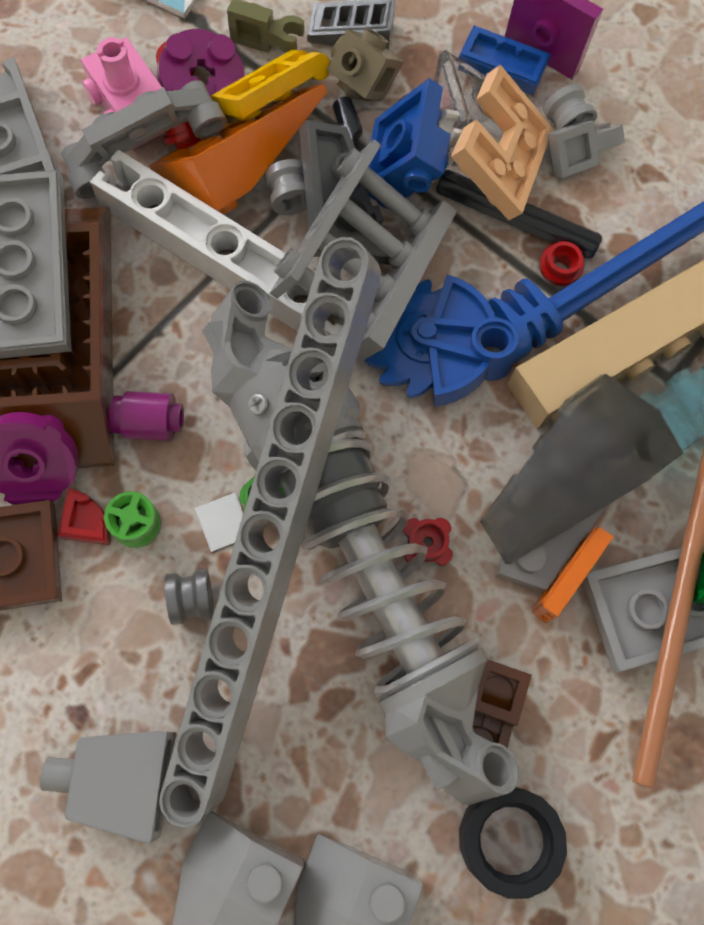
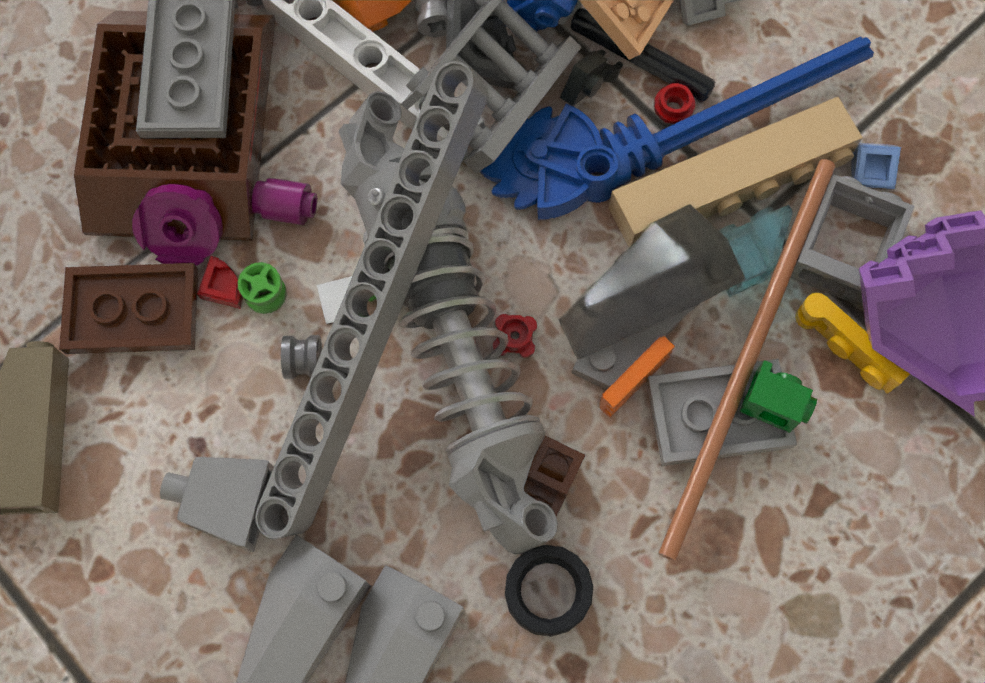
camera: 15 degrees right, 0 degrees up
(469, 243) = (588, 77): none -> pearl dark grey plate

